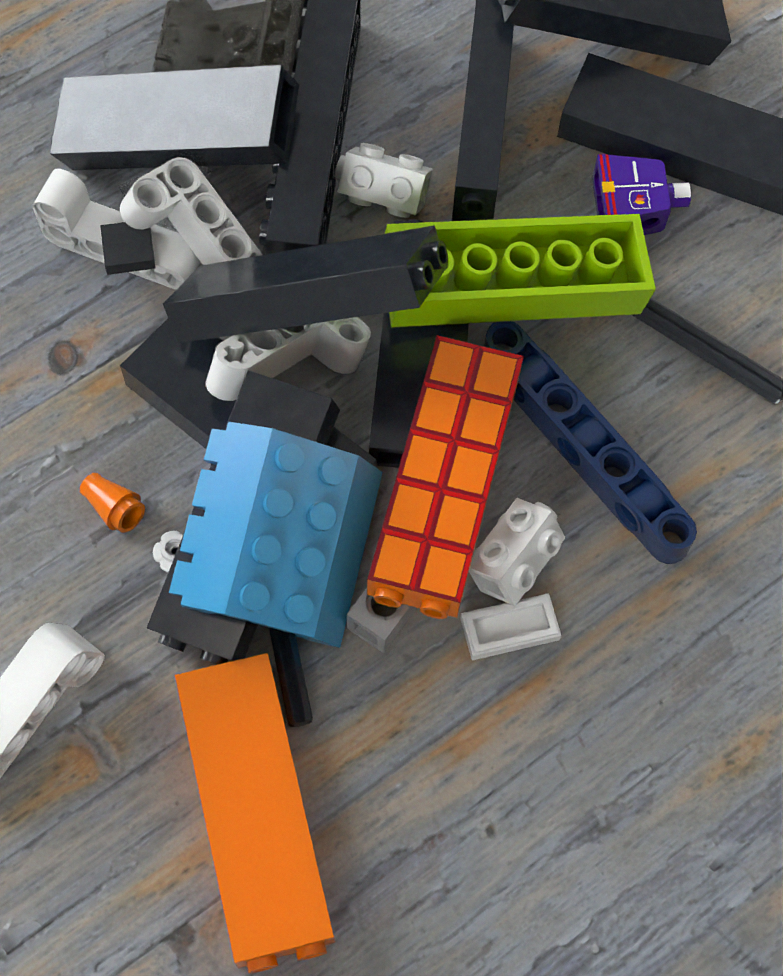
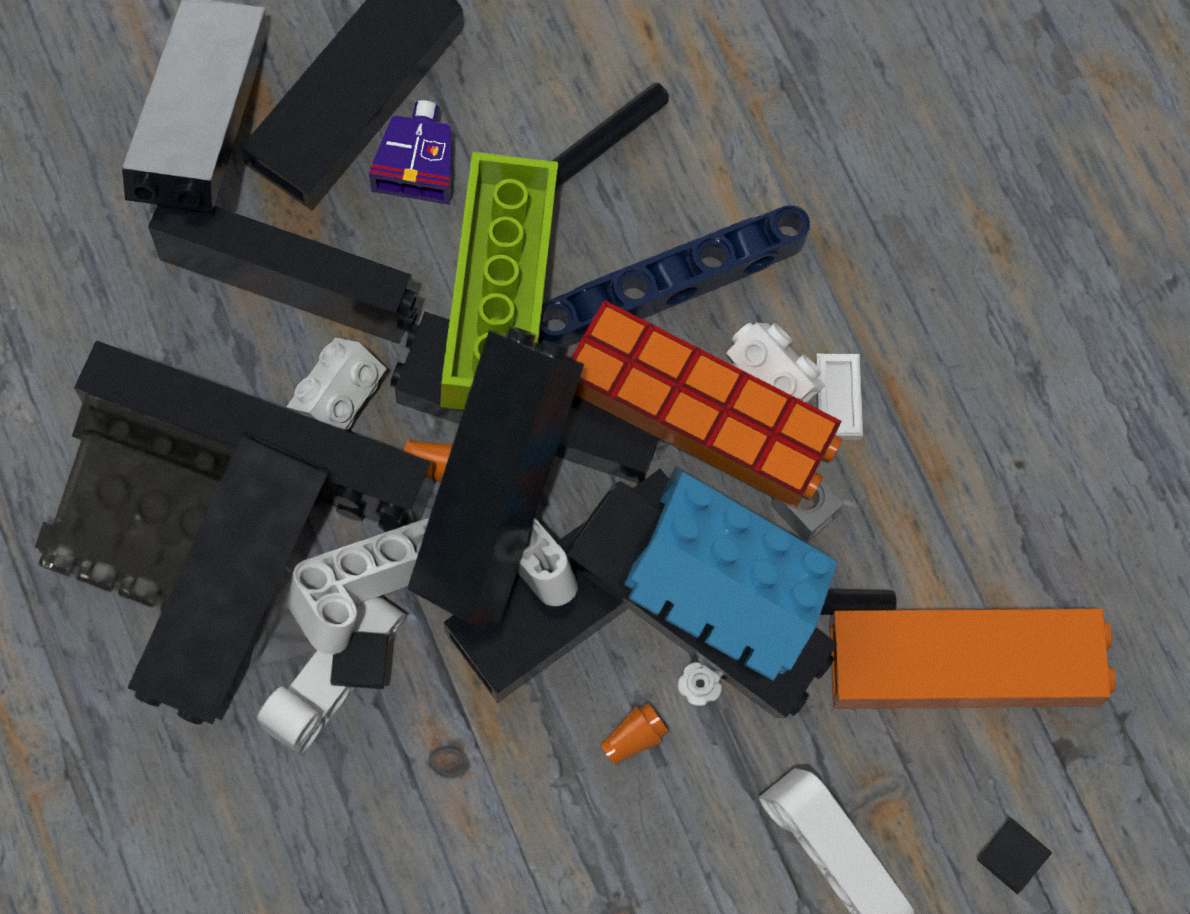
camera: 80 degrees left, 5 degrees up
(53, 899) = (1014, 856): none -> black piece

